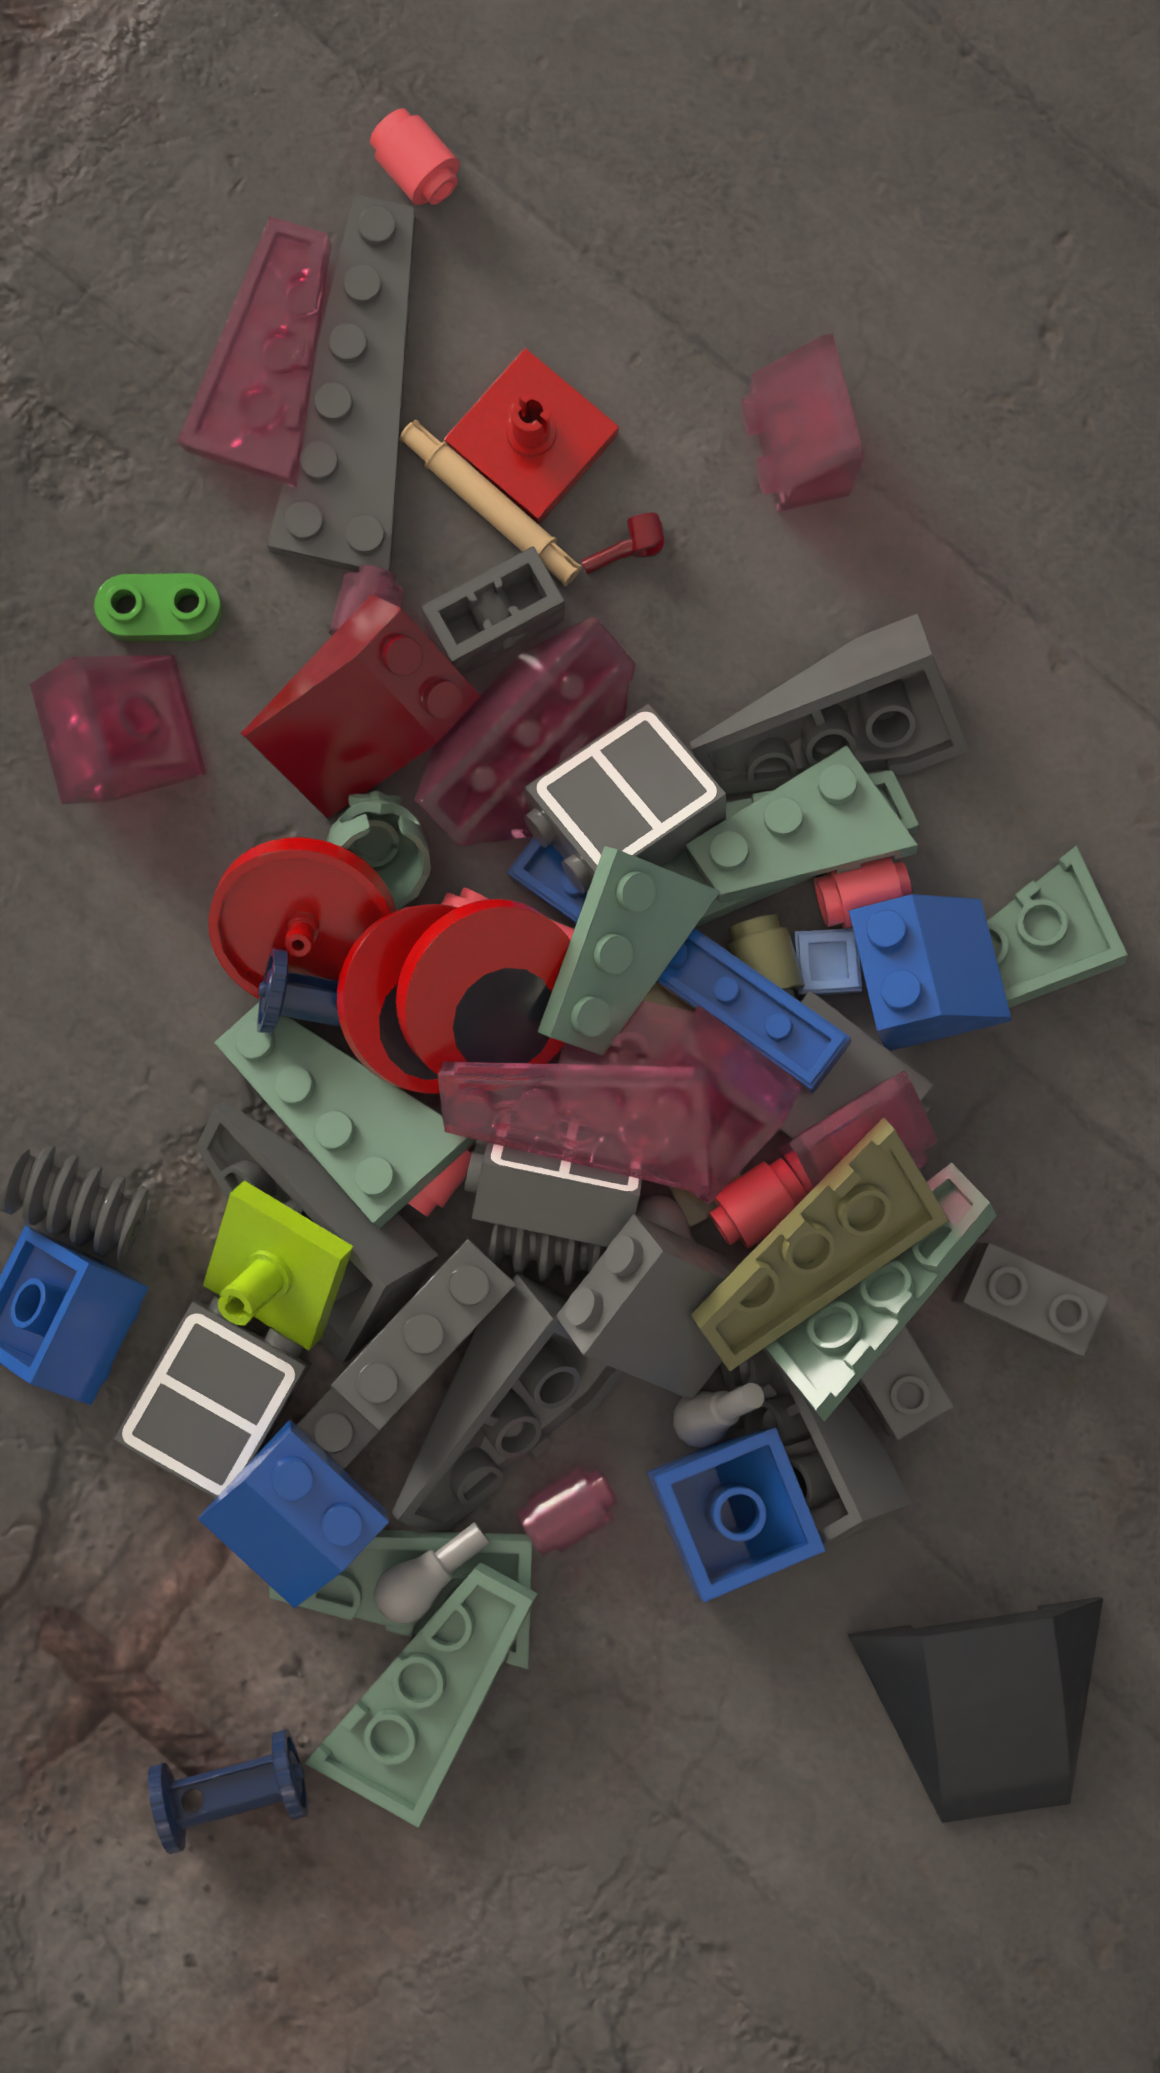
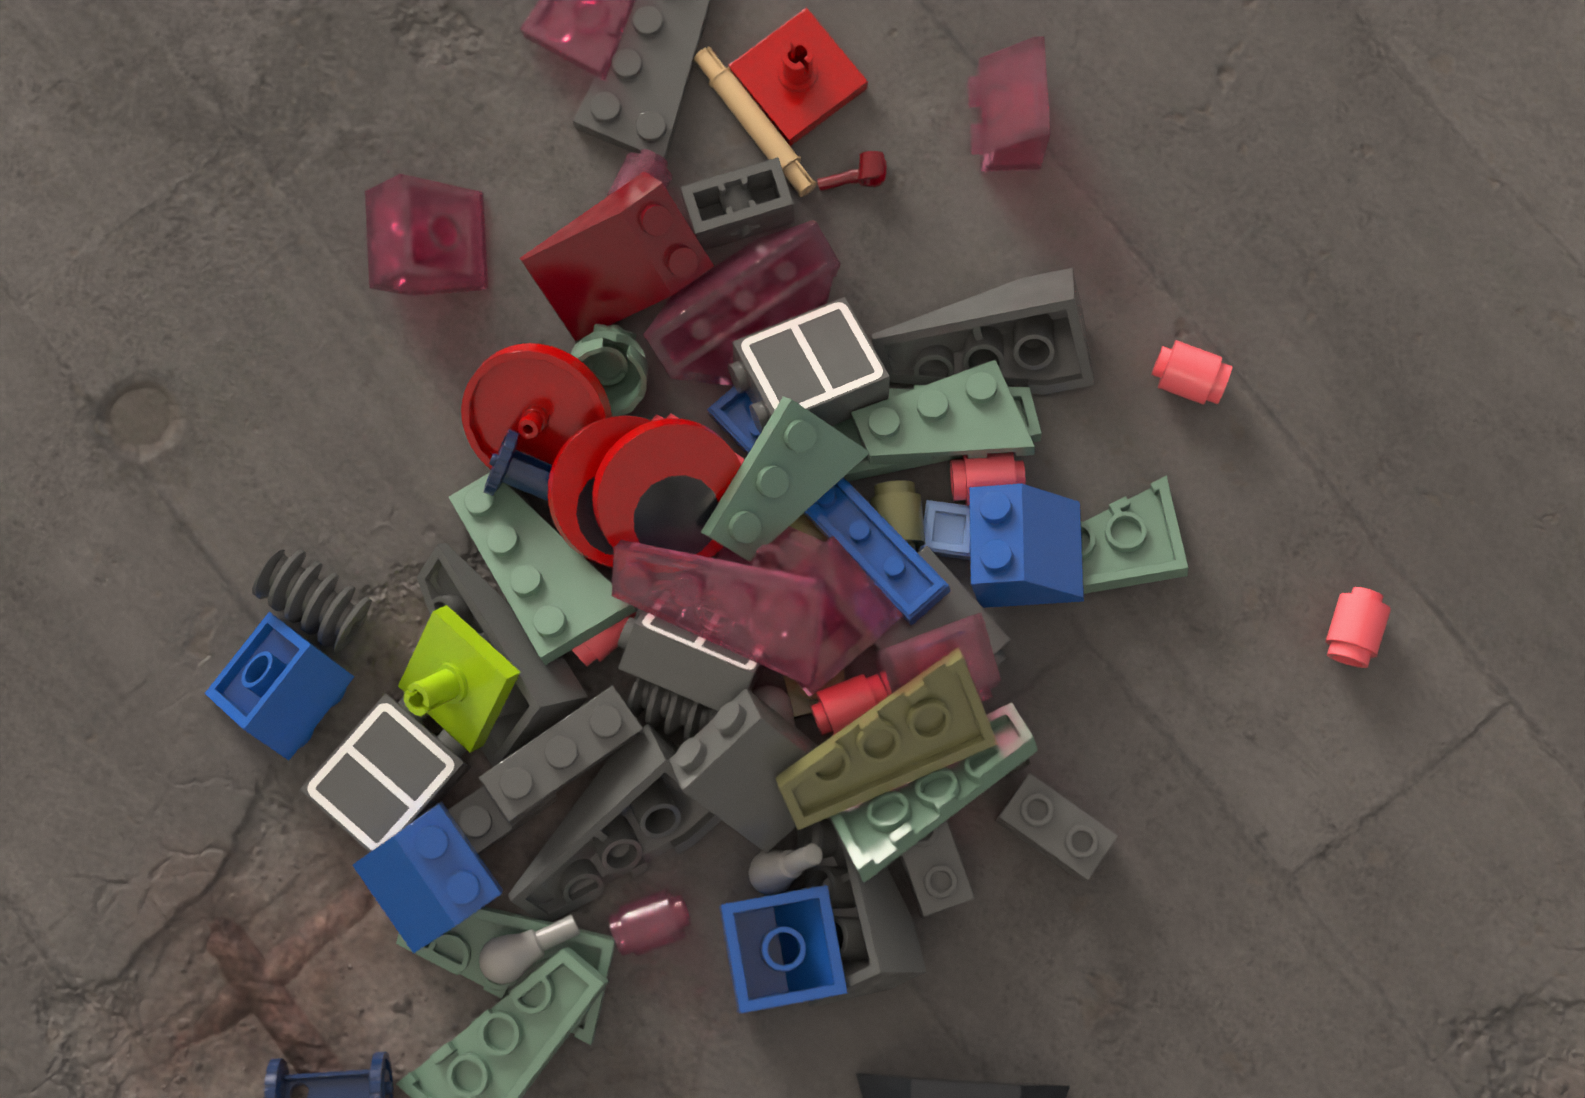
camera: 20 degrees right, 5 degrees down
(156, 607) = (475, 156): bright green plate -> none
(1083, 714) = (1191, 373): none -> coral brick

